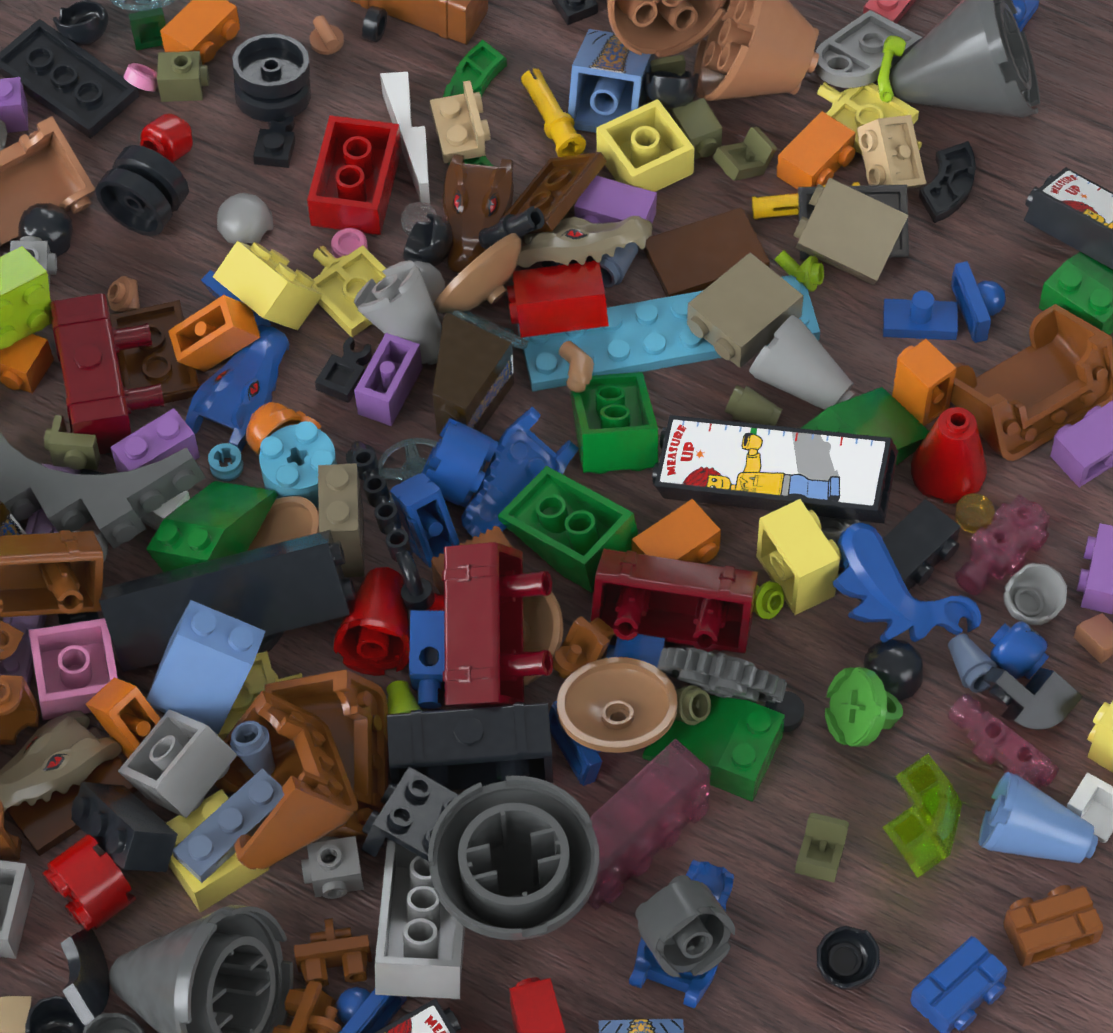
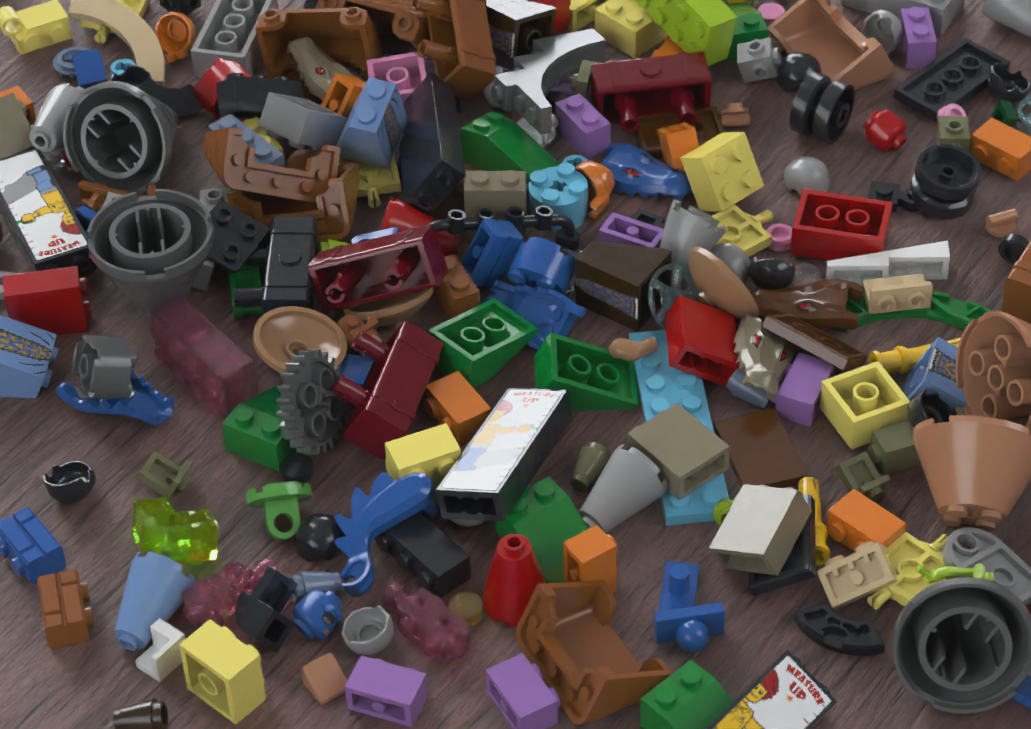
camera: 95 degrees right, 15 degrees down
(253, 746) = (303, 149): sand blue cone -> none
(520, 224) = (763, 301): black pin -> none

